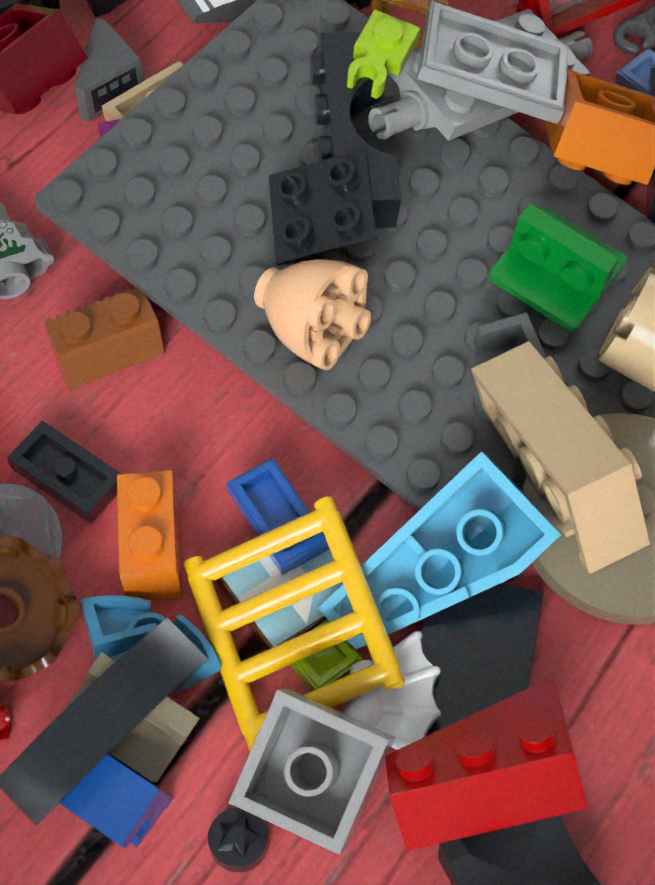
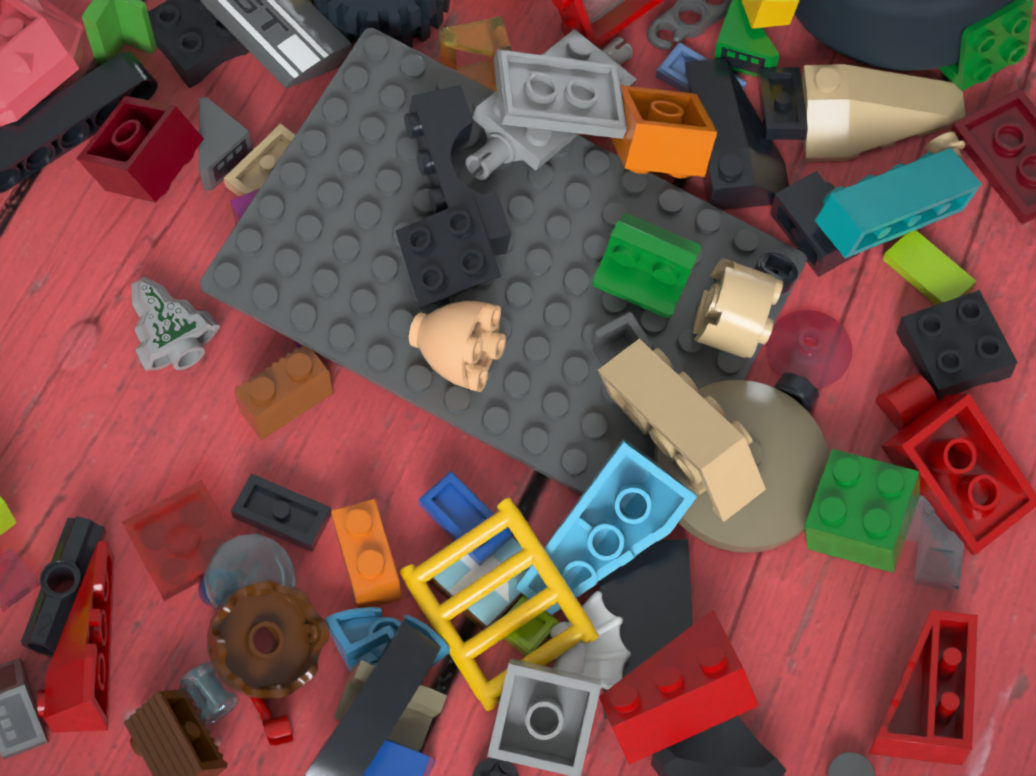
camera: 15 degrees left, 5 degrees up
(381, 49) = (467, 104): lime plate -> none

